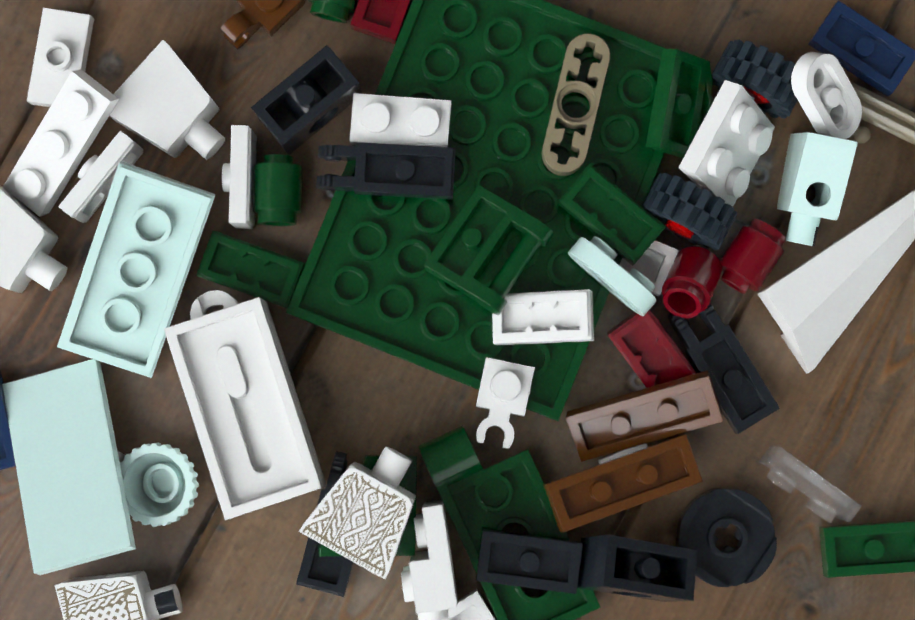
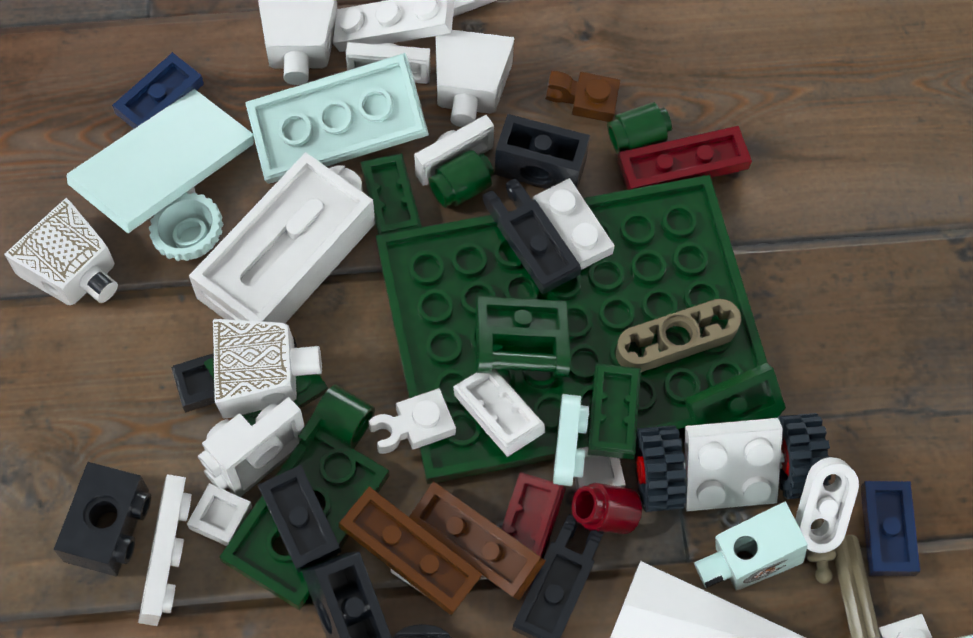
camera: 50 degrees right, 20 degrees down
(752, 256) = (662, 544): dark red brick -> none

